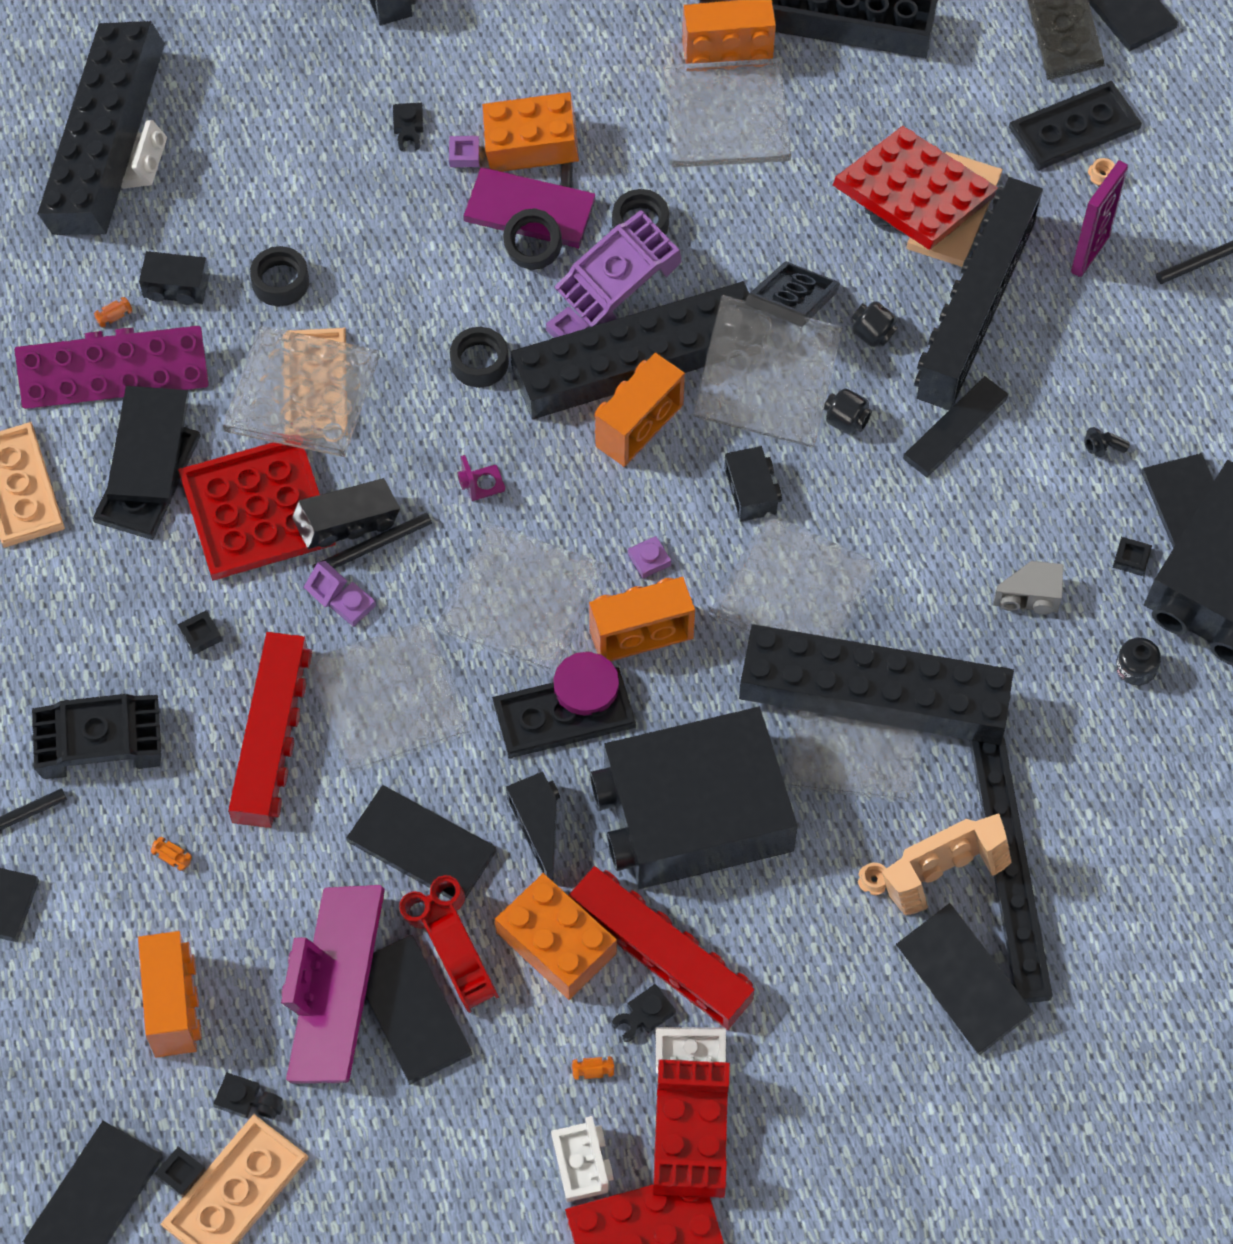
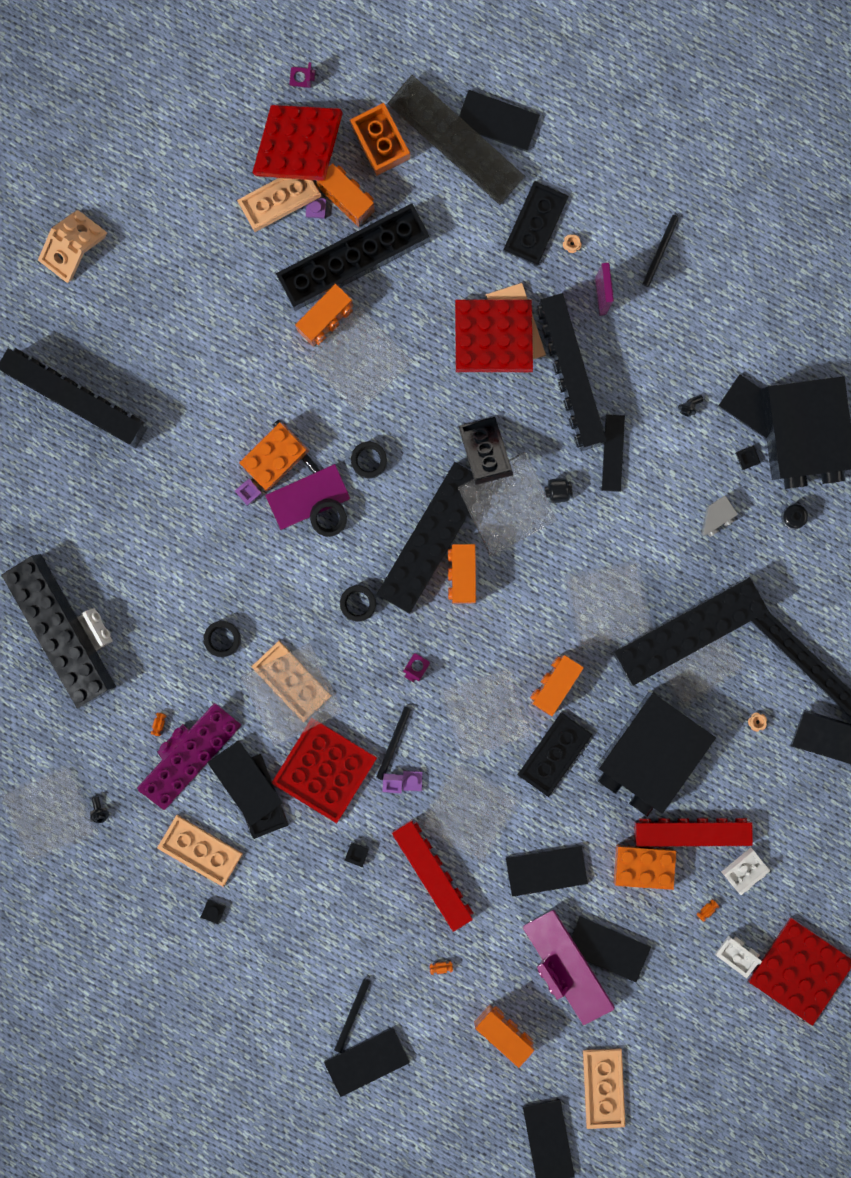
camera: 40 degrees left, 25 degrees up
(96, 733) = (358, 944): black plate -> none
(174, 277) = (172, 683): black brick -> none
(180, 1172) = (575, 1101): black plate -> none
(239, 1095) = (569, 1047): black plate -> none
(346, 513) = (374, 743): black brick -> none
(408, 123) = (202, 495): black plate -> none
(451, 940) = (602, 907): red piece -> none
(535, 809) = (586, 815): black slope -> none
(565, 323) = (386, 552): medium lavender plate -> none
(586, 683) = (555, 735): magenta tile -> none
(617, 268) = (388, 505): medium lavender plate -> none
(647, 1010) = (709, 864): black plate -> none
(649, 557) = (527, 643): medium lavender plate -> none
(691, 1128) = (775, 907): red plate -> none
(752, 483) = (544, 566): black brick -> none
(874, 323) = (532, 428): black head -> none
(942, 851) = (779, 720): light nougat plate -> none

